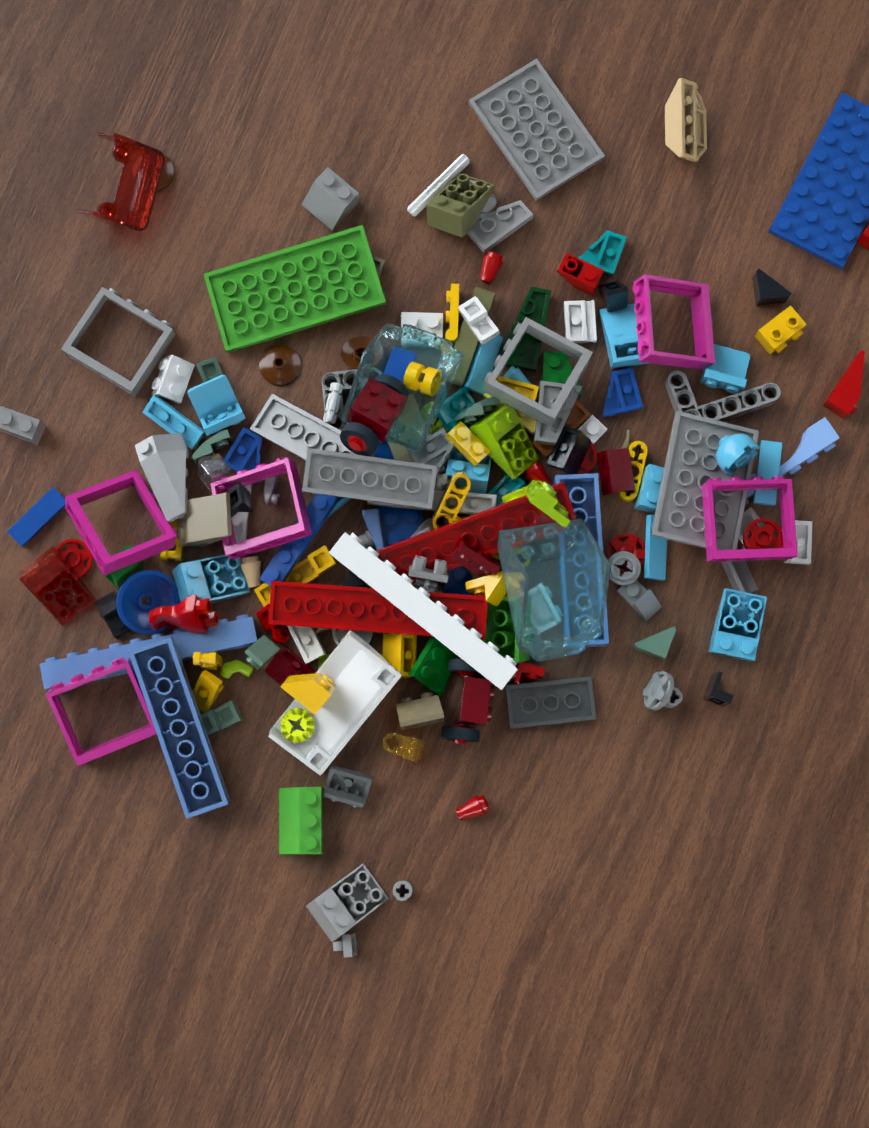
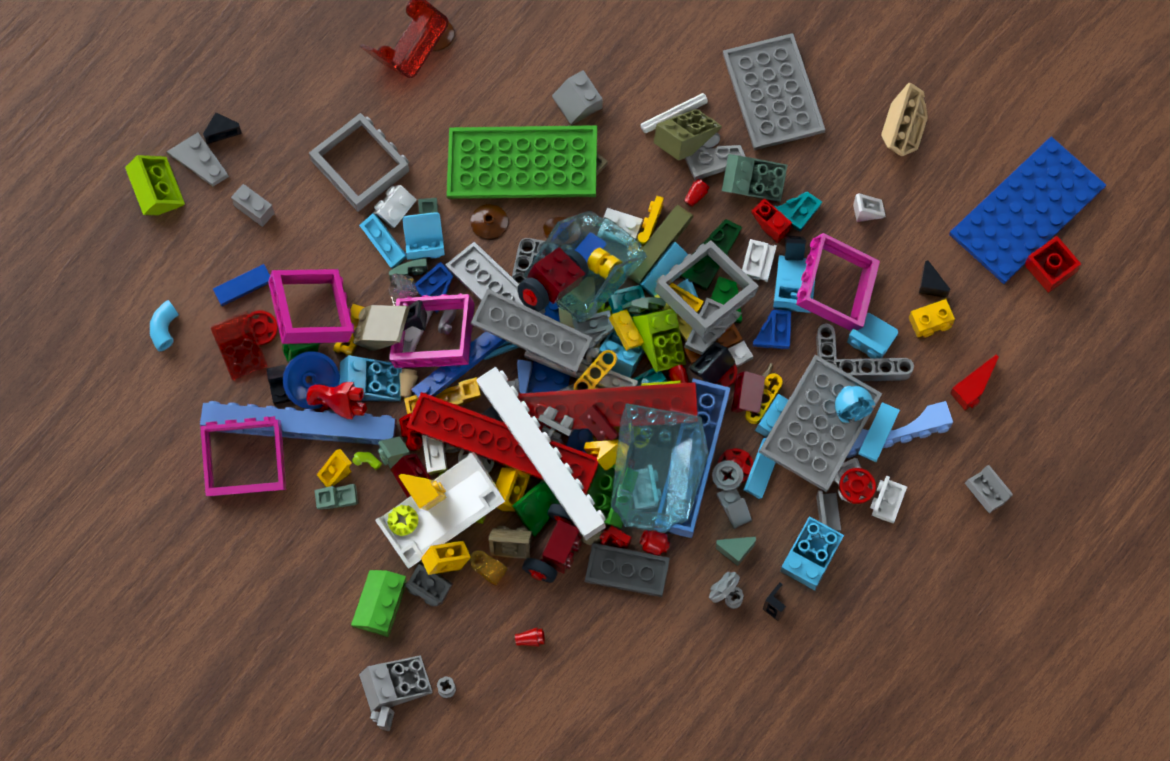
camera: 20 degrees right, 10 degrees down
(165, 467) = (363, 275): light grey wedge -> none
(179, 727) = (302, 489): medium blue brick -> none
(208, 661) = (345, 441): yellow plate -> none
(333, 403) = (522, 263): white axle -> none
(356, 752) = (445, 557): none -> yellow brick
(478, 320) = (670, 232): white slope -> none
(544, 498) = (672, 386): lime plate -> none
(547, 232) = (754, 177): none -> sand green slope
(570, 666) = (654, 542): none -> red head
(676, 229) = (868, 208): none -> white slope
(785, 489) = (841, 493): dark pink window -> none

